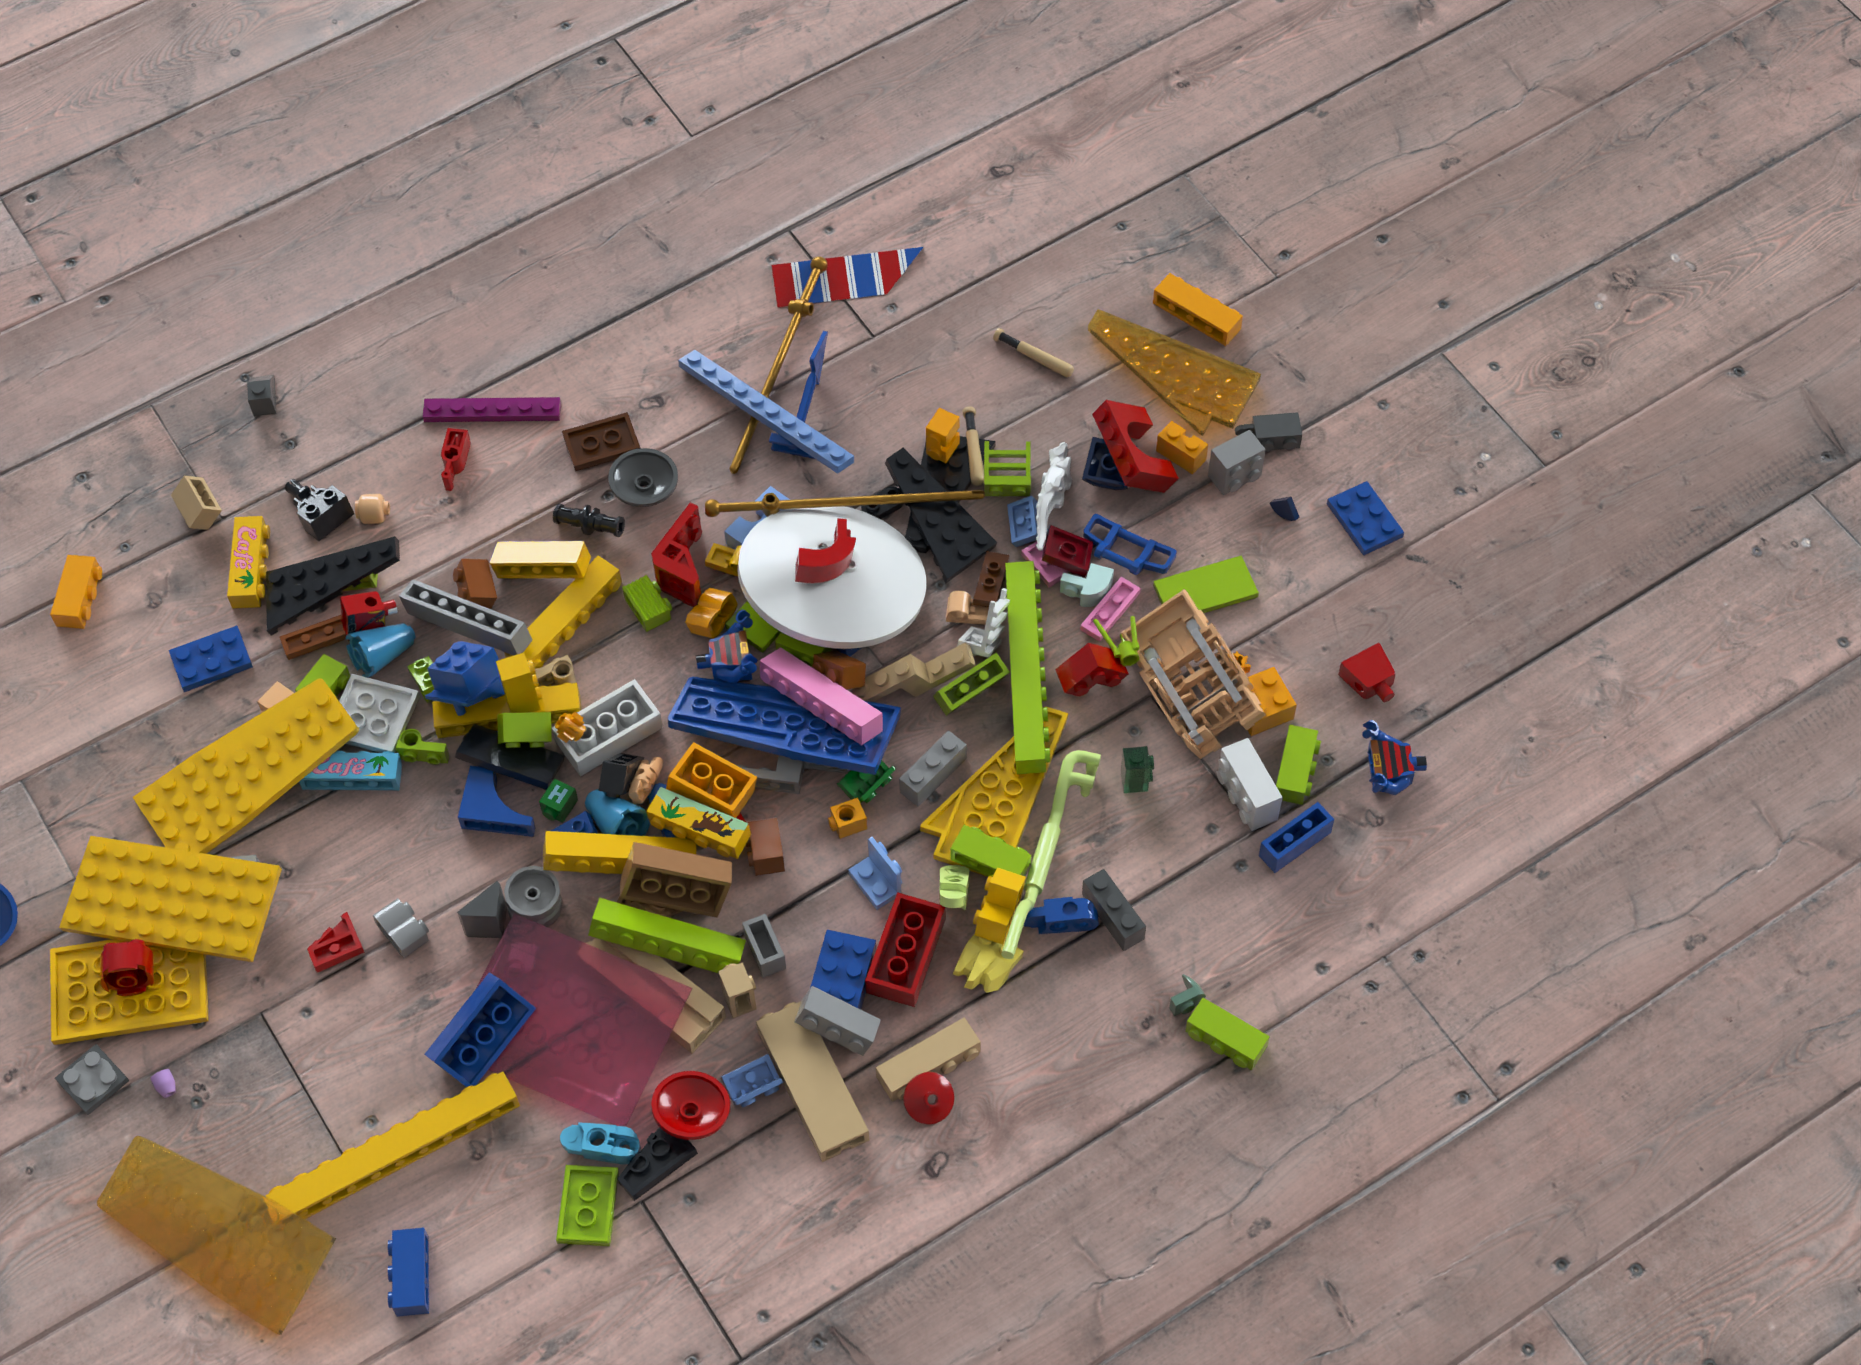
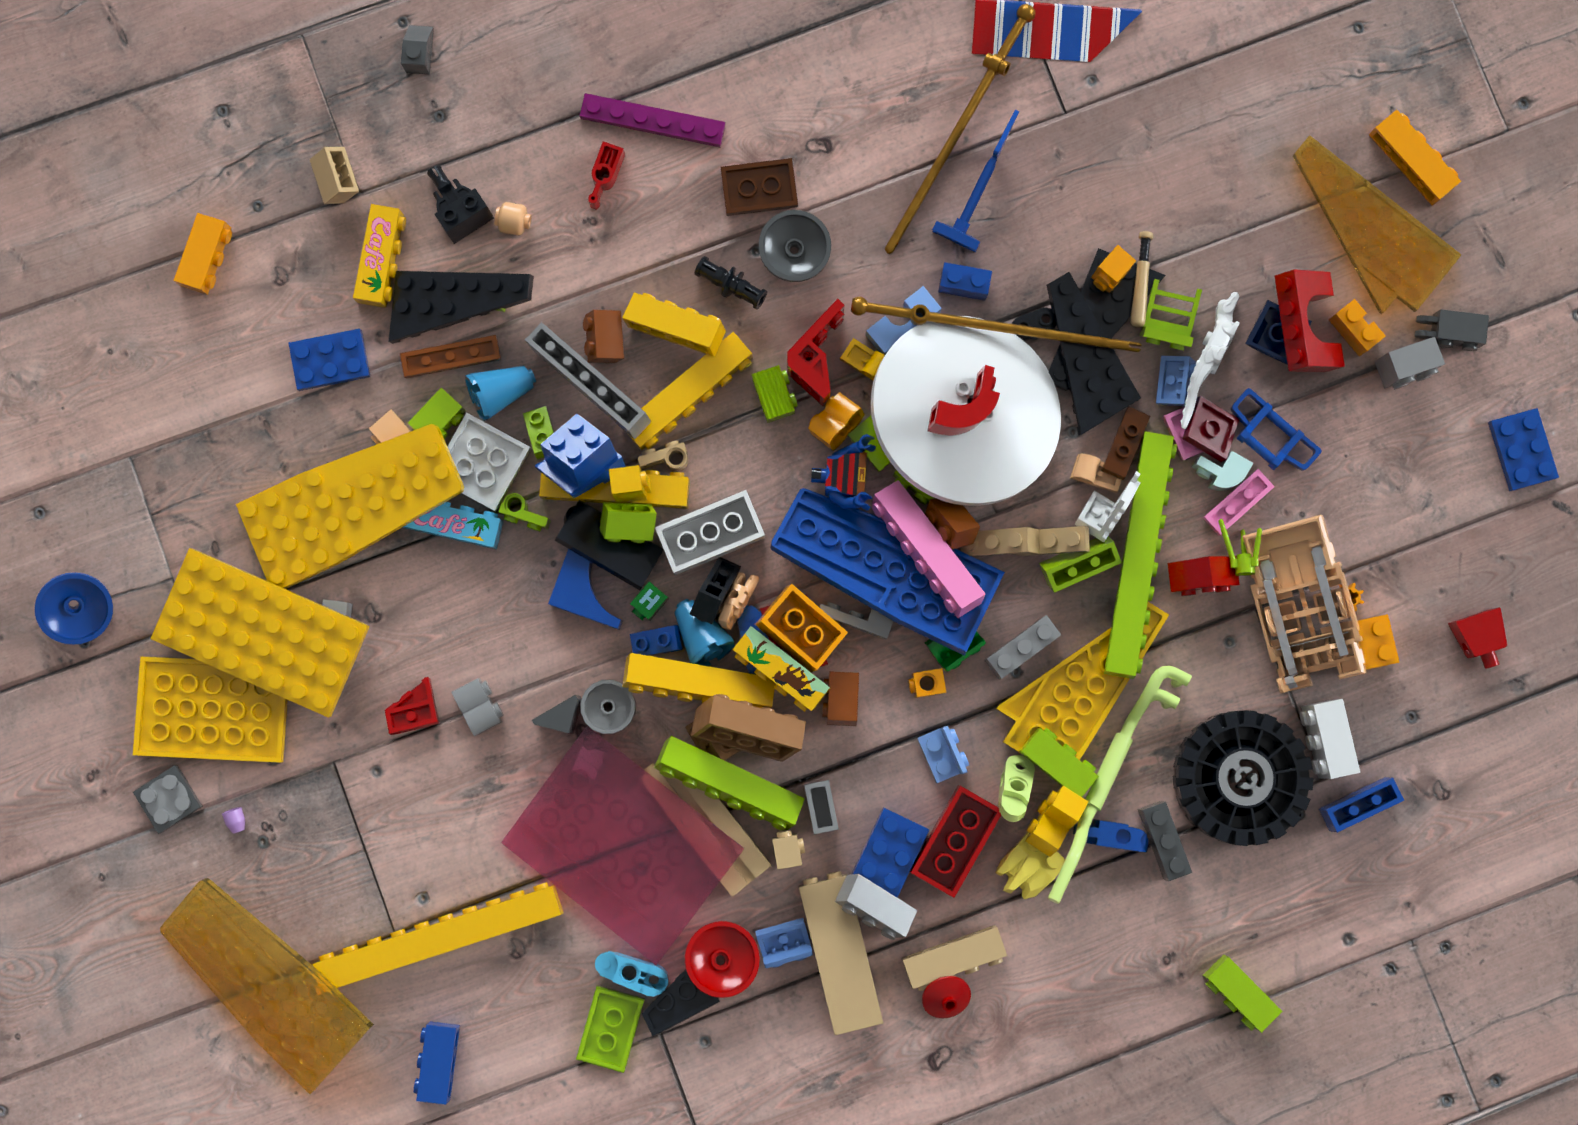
camera: 10 degrees right, 25 degrees up
(127, 967) = (209, 704): red brick -> none
(364, 611) = (479, 356): red torso -> none
(480, 1031) = (535, 839): blue slope -> none
(570, 727) = (672, 538): light orange gear -> none
(766, 411) = (935, 192): medium blue plate -> none
(808, 479) = (965, 281): none -> blue brick
(1046, 359) = (1245, 189): tan piece -> none
(1136, 769) = (1222, 697): clear green brick -> none
(1188, 999) = (1210, 951): sand green plate -> none
(1191, 864) = (1219, 747): none -> black wheel
(1211, 585) = (1341, 496): lime tile -> none
(1285, 508) = (1444, 422): dark blue tile -> none
(1298, 764) = (1382, 721): lime brick -> none
(1390, 761) = (1474, 741): torso -> none

